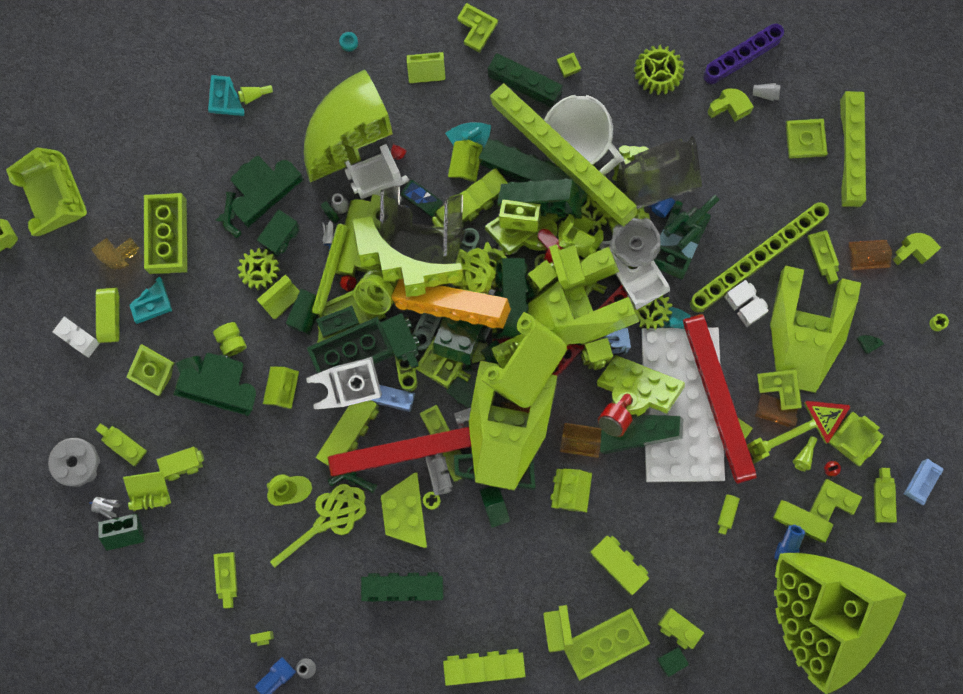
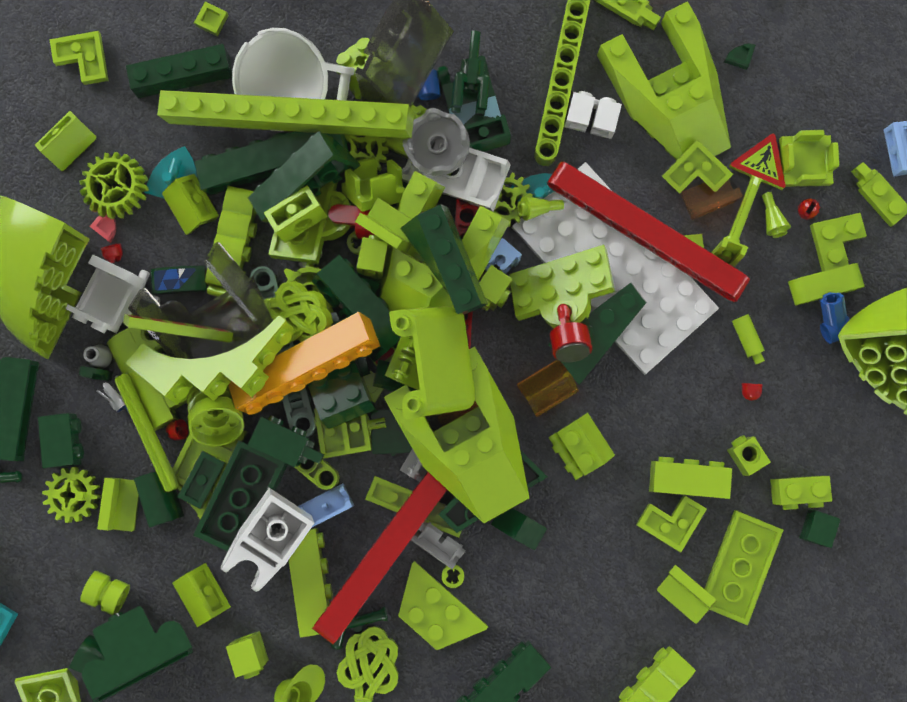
camera: 50 degrees left, 5 degrees up
(278, 442) = (247, 655): none -> lime brick
(398, 224) = (177, 328): none -> lime tile
(407, 133) = (105, 227): none -> coral tile
(443, 106) = (119, 167): none -> lime gear
(584, 308) = (443, 251): none -> dark green wedge
(585, 586) = (673, 529): none -> lime plate
(660, 587) = (758, 459): none -> lime brick
(663, 327) = (533, 207): none -> lime cone
(702, 545) = (751, 391): none -> red hinge

